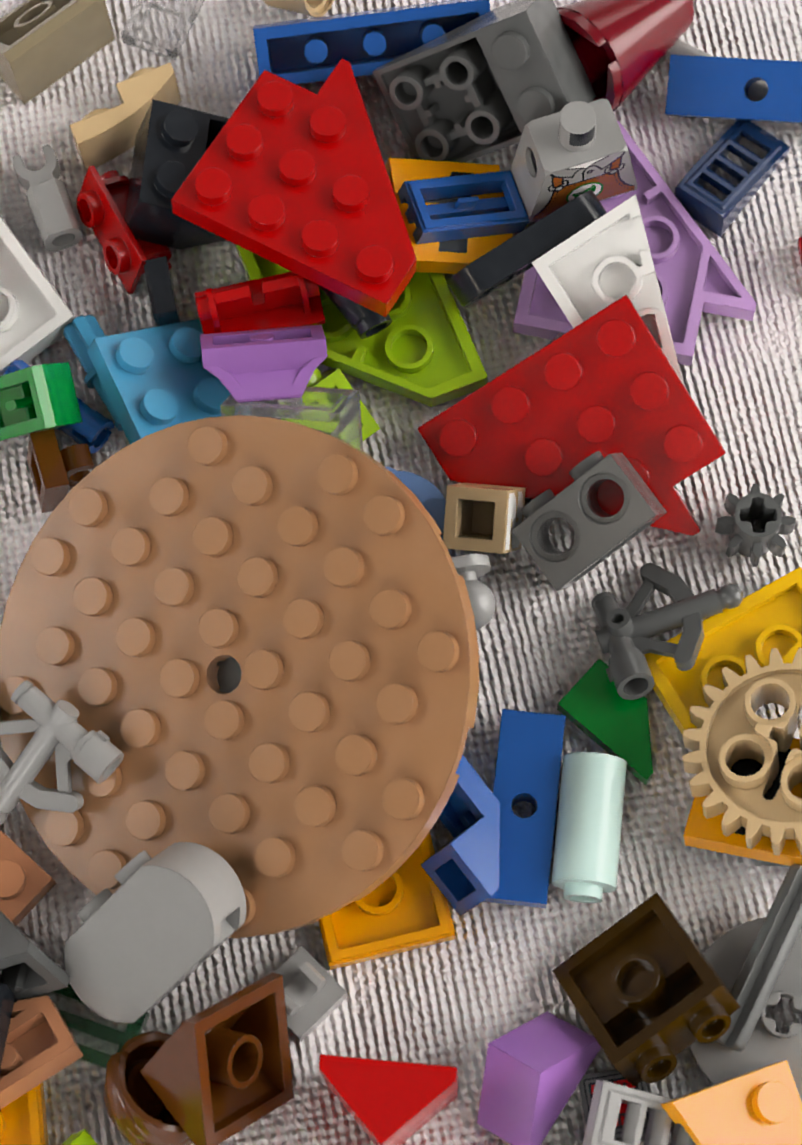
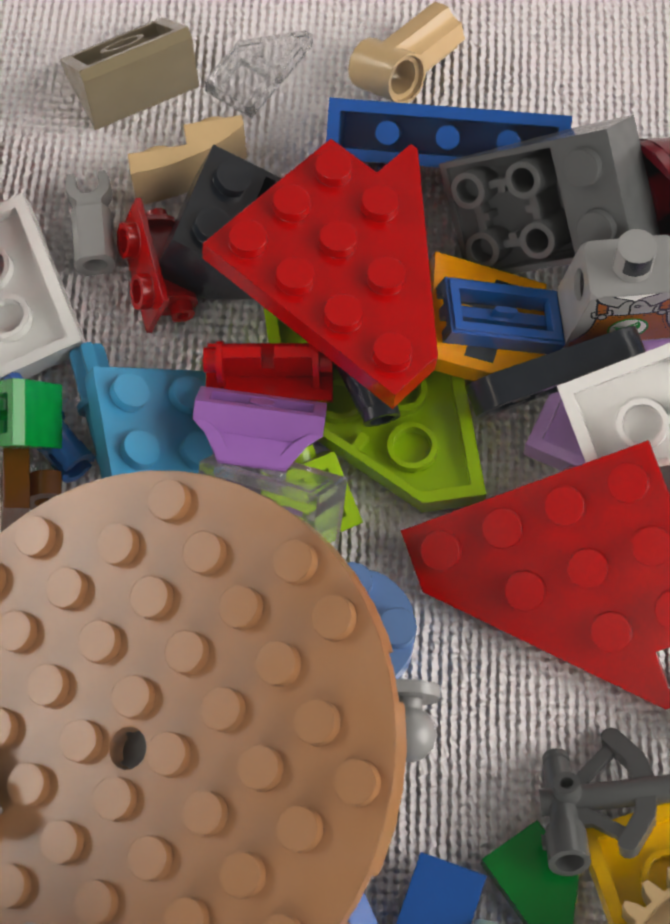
camera: 10 degrees right, 5 degrees down
(161, 291) = (176, 336): black tile -> none
(482, 517) = (447, 641): tan brick -> none
(594, 530) = (562, 680): dark grey brick -> none

